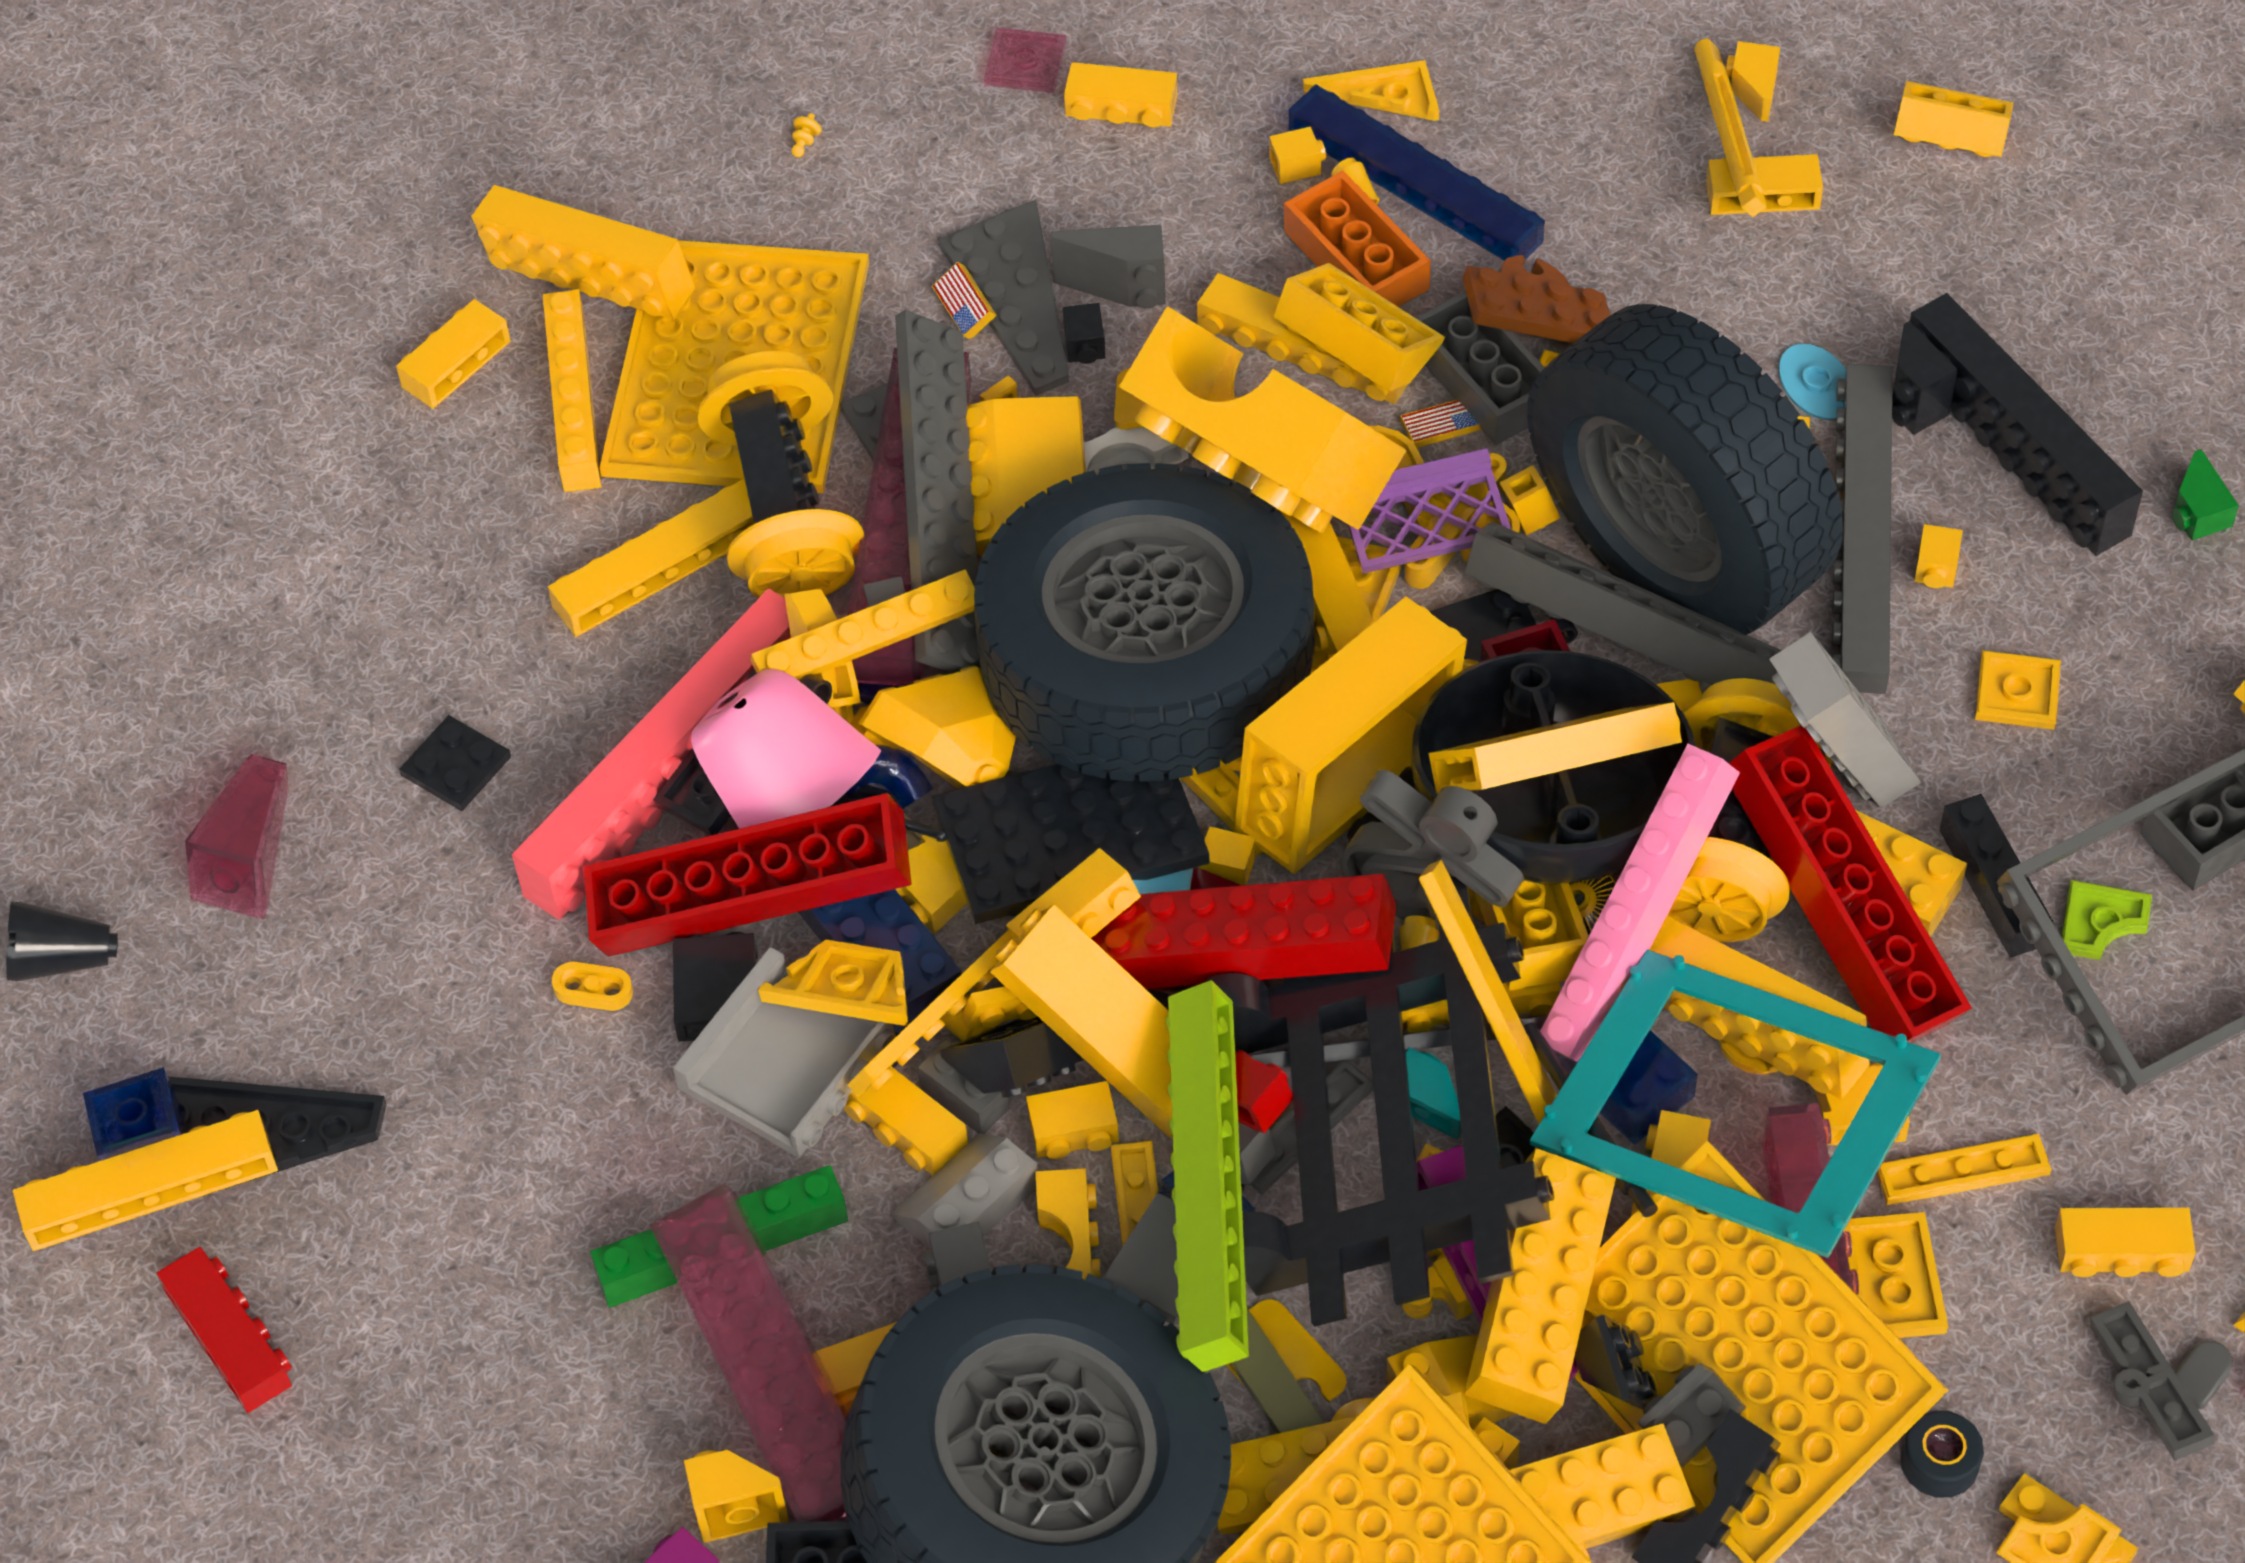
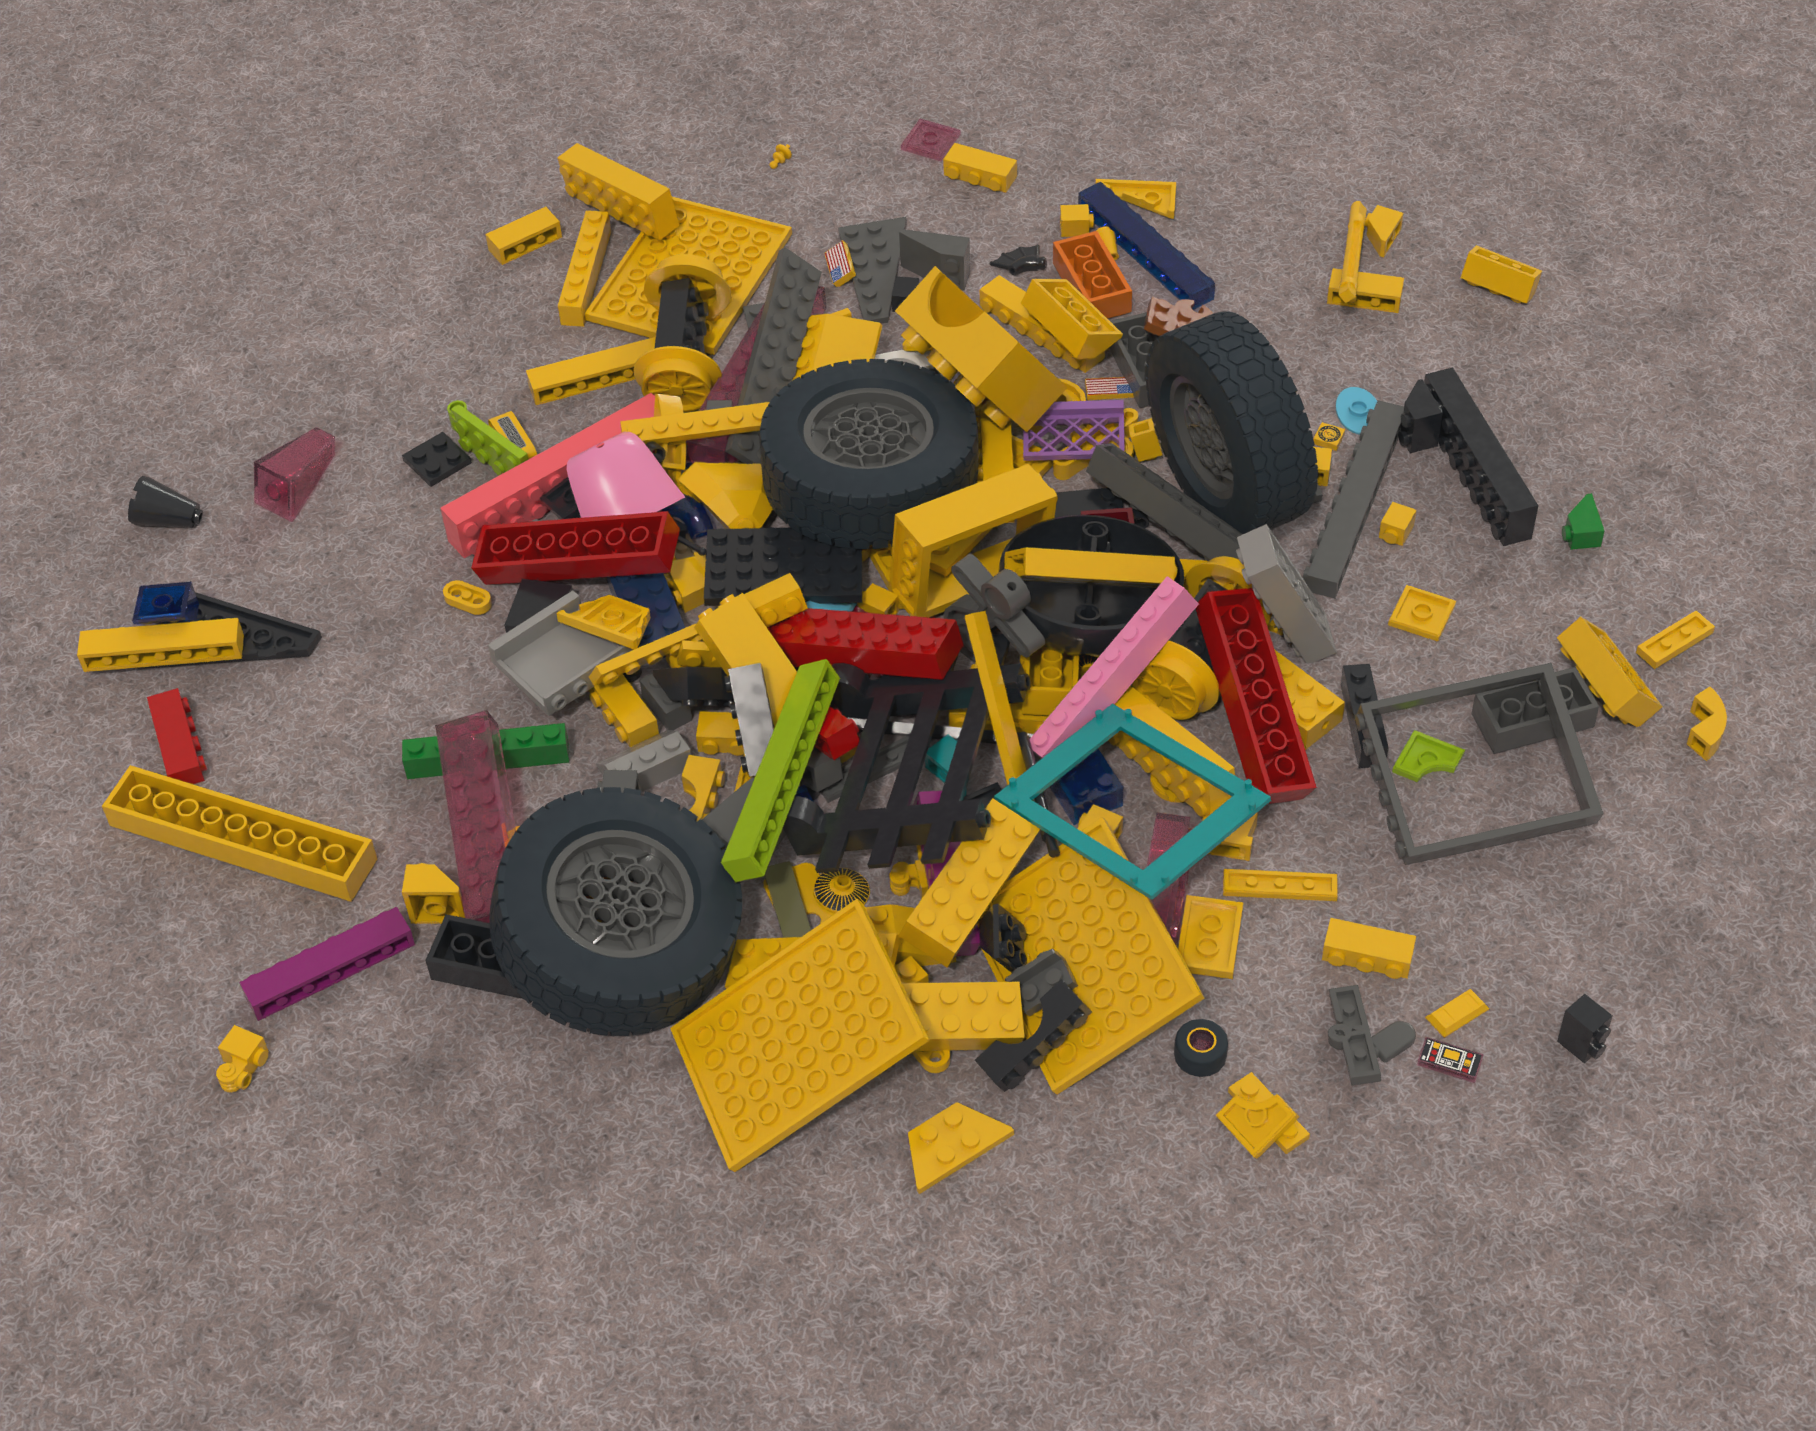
camera: 15 degrees right, 5 degrees down
(388, 1463) = (240, 833): none -> yellow brick
(531, 723) = (483, 440): none -> lime hinge
(567, 705) = (510, 428): none -> beam
(1126, 1097) = (753, 713): none -> brick
(1234, 236) = (1021, 260): none -> black arm
(1335, 1346) = (834, 896): none -> dish

